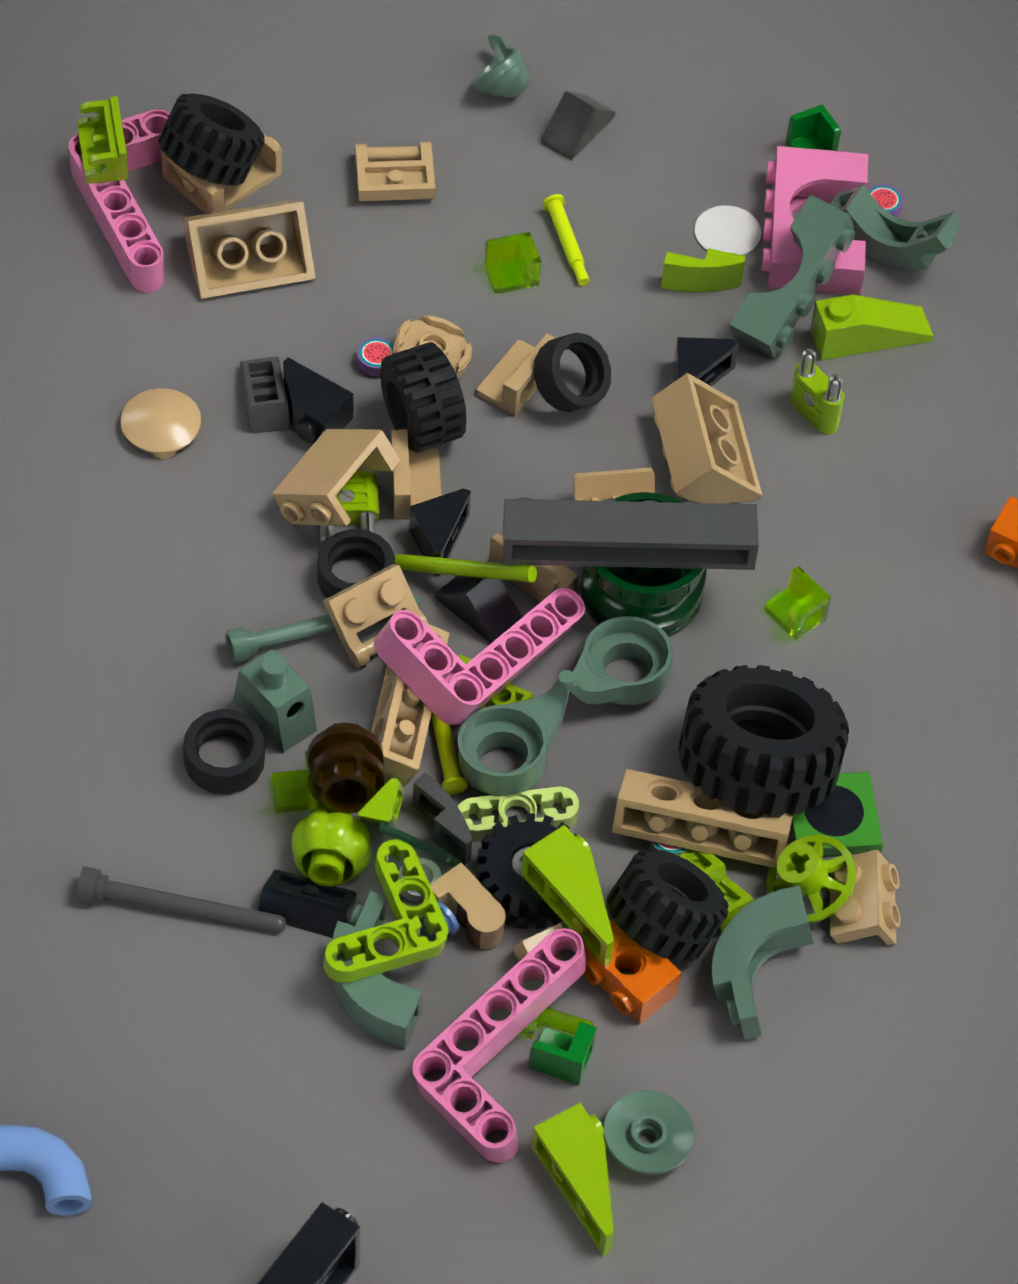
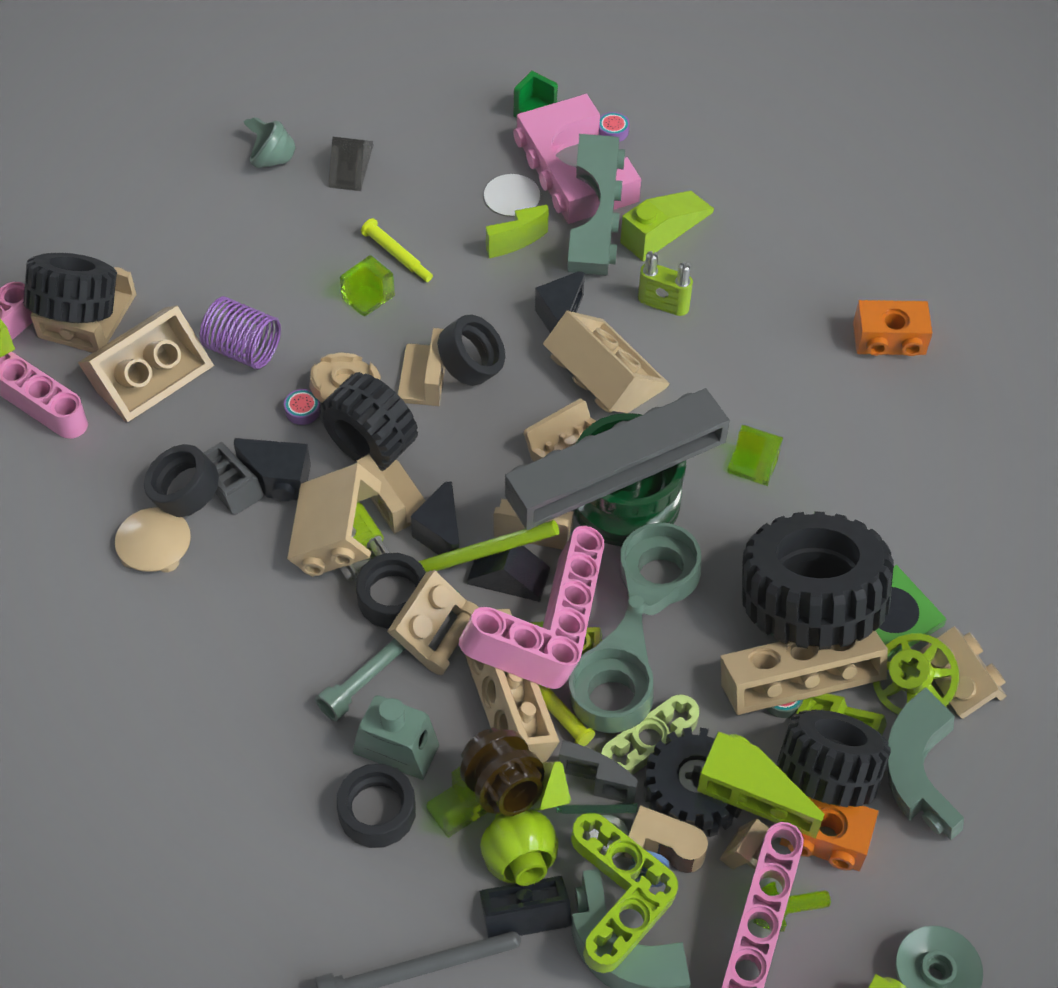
camera: 25 degrees left, 0 degrees up
(222, 392) = (168, 467): none -> black tyre
(347, 248) = (245, 337): none -> medium lavender piece
(395, 172) = (230, 254): tan plate -> none
(563, 1054) = (823, 931): green panel -> none
(892, 240) = (650, 148): sand green arch -> none

